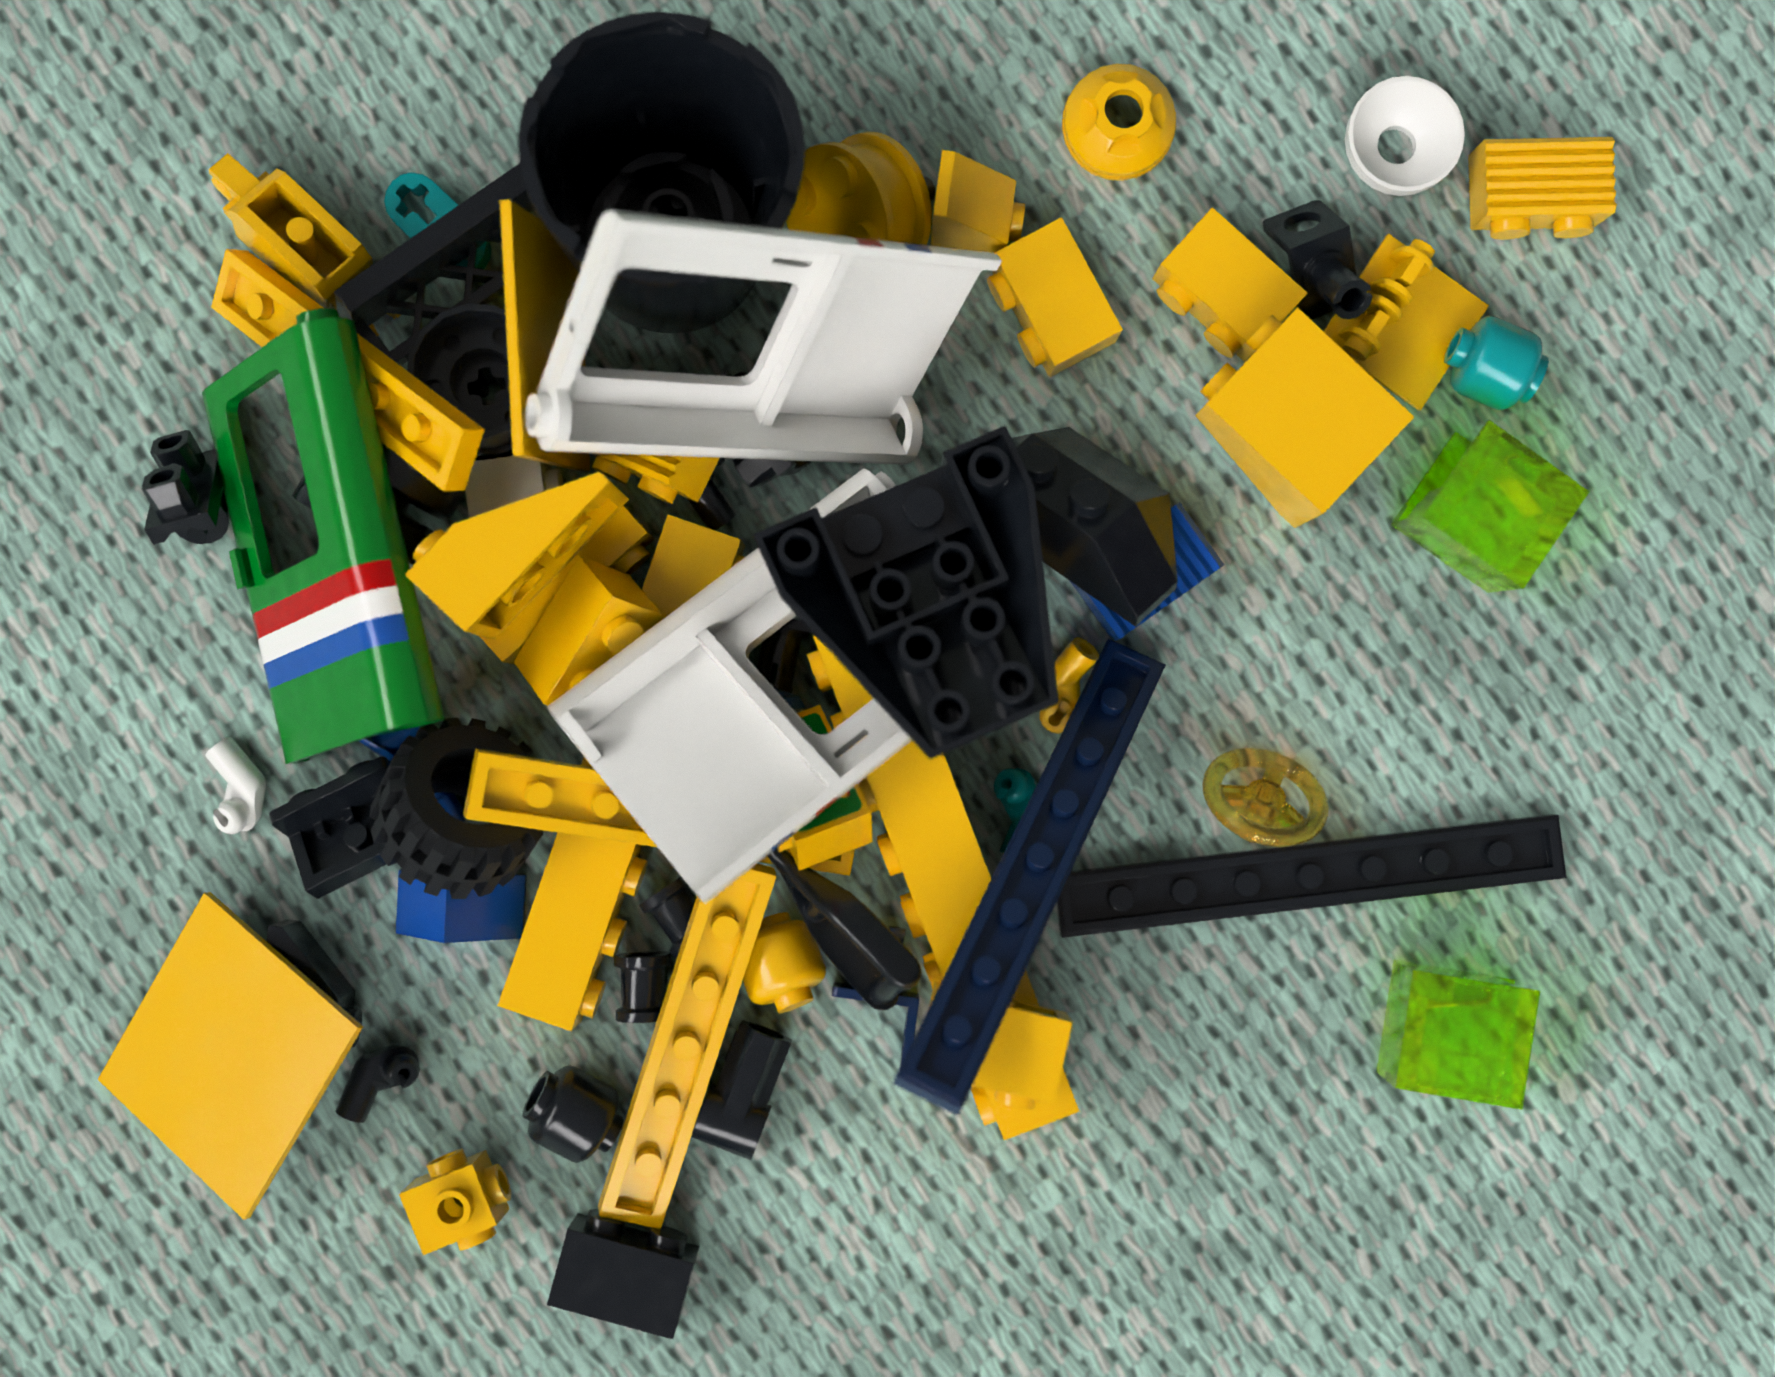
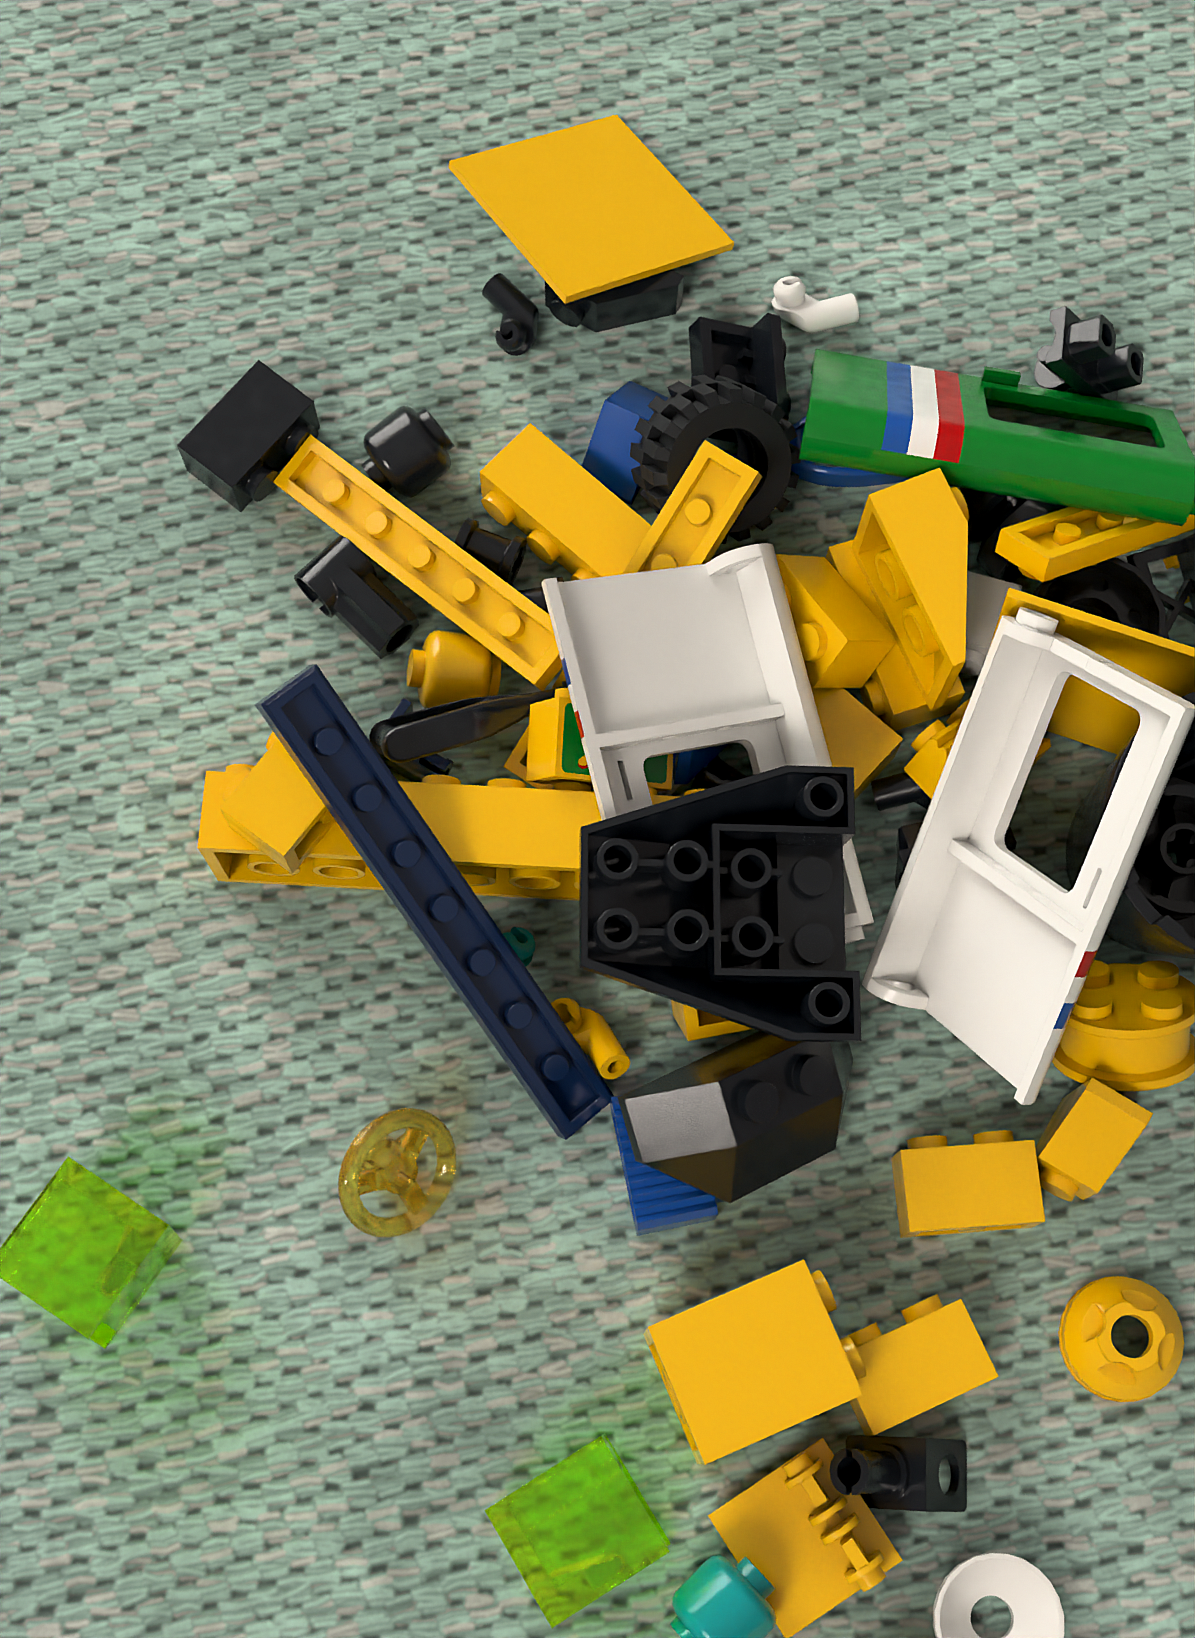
camera: 115 degrees right, 15 degrees down
(457, 1201) = (380, 330): yellow brick -> none
(1311, 875) = (298, 1202): black tile -> none

